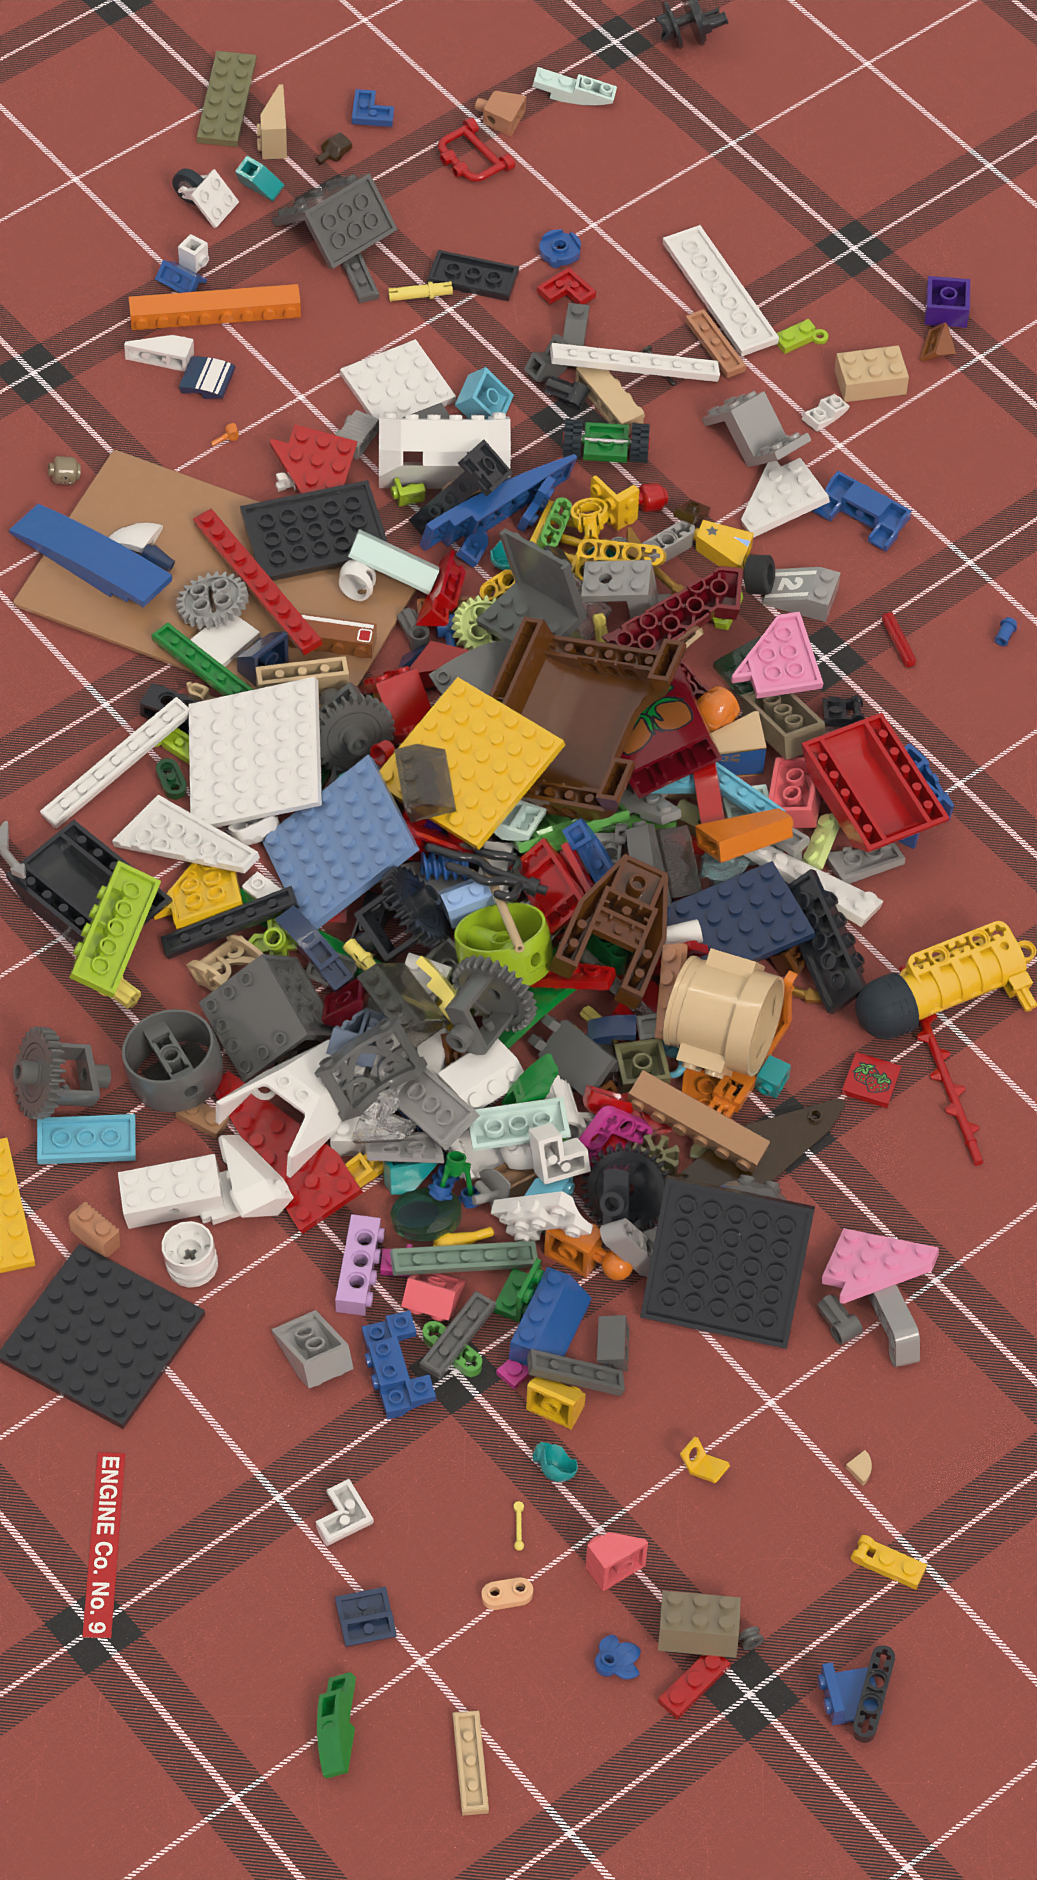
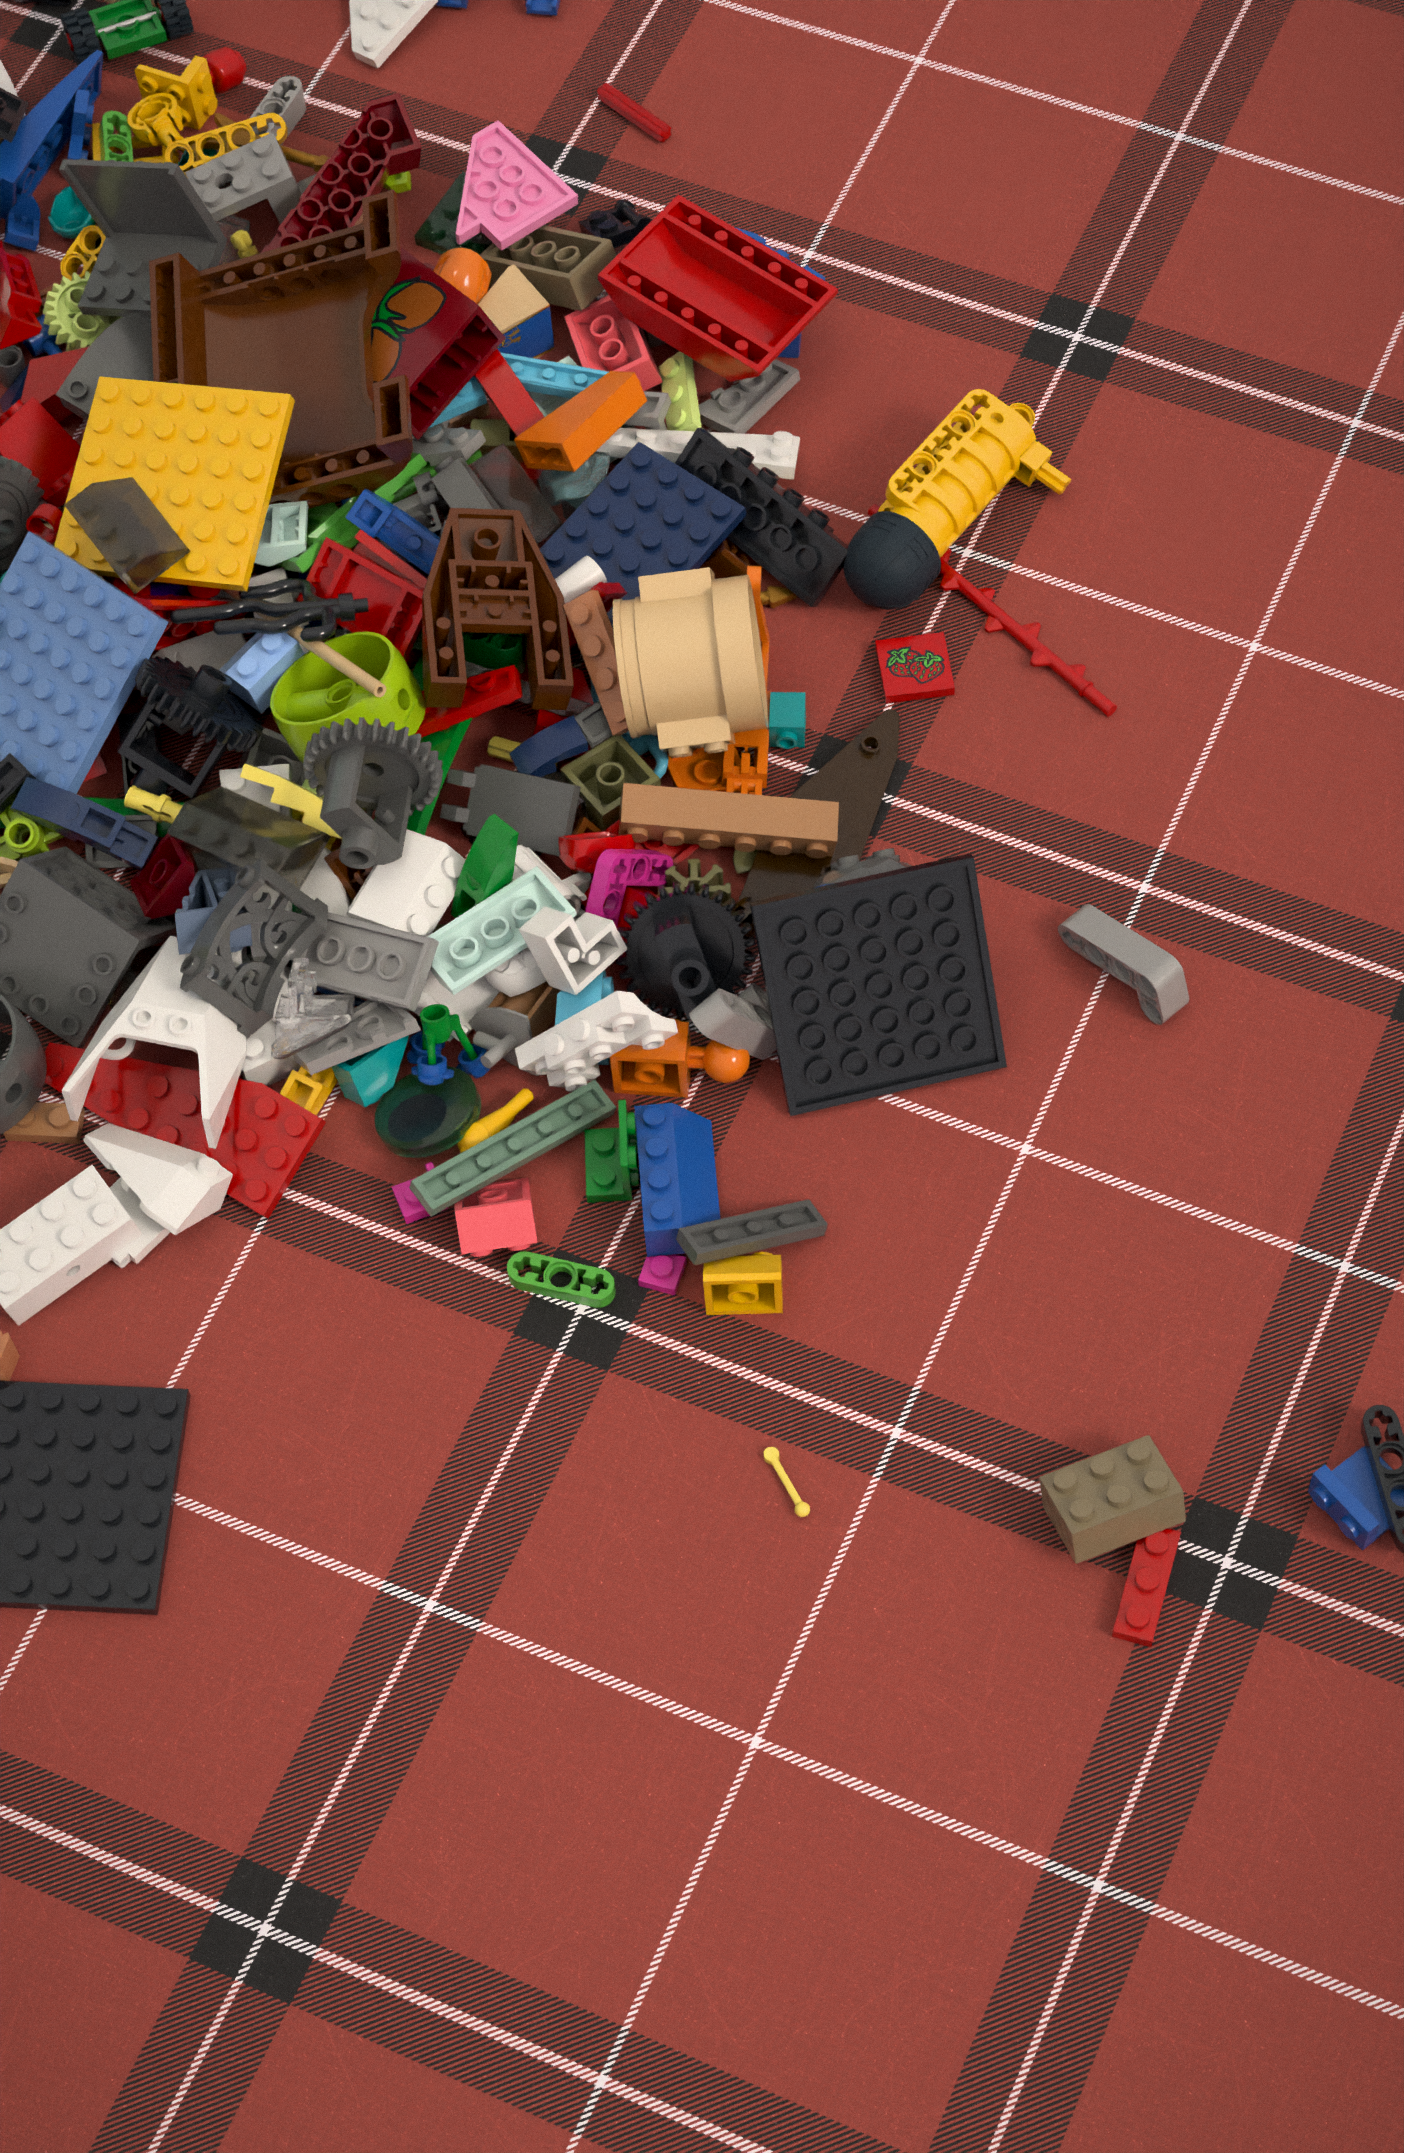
camera: 20 degrees left, 5 degrees up
(104, 1545) = (217, 1800): red sticker -> none
(190, 1254) = (127, 1320): white wheel -> none
(313, 1349) = (370, 1370): light grey slope -> none
(333, 1726) = (689, 1900): green slope -> none
(348, 1518) = (548, 1582): white brick -> none
(361, 1230) = (382, 1277): lavender brick -> none
(365, 1616) = (646, 1717): dark blue slope -> none
(389, 1370) = (492, 1350): blue bracket -> none
(436, 867) = (198, 639): blue piece -> none
(457, 1335) = (561, 1257): dark grey tile -> none
(470, 1763) = (907, 1855): tan tile -> none
(508, 1595) = (825, 1584): light nougat plate -> none
(554, 1462) = (788, 1369): teal hair -> none
(613, 1342) = (775, 1166): dark grey hinge -> none
(614, 1558) = (946, 1464): coral slope -> none
(620, 1658) = (1027, 1597): blue plate -> none
(691, 511) = (285, 64): dark brown plate -> none
(703, 1465) = (990, 1276): yellow bracket -> none
(723, 544) = (344, 87): yellow slope -> none
(751, 1638) = (1191, 1482): dark grey bush -> none
(759, 574) = (417, 101): black tyre -> none
(804, 591) = (478, 100): light grey slope -> none
(841, 1323) = (1063, 1000): dark grey piece -> none
(860, 1467) = (1195, 1179): tan tile -> none
(874, 1262) = (1061, 899): bright pink wing -> none
(888, 1562) = (1306, 1289): yellow plate -> none
(1007, 627) = (761, 40): blue pin -> none

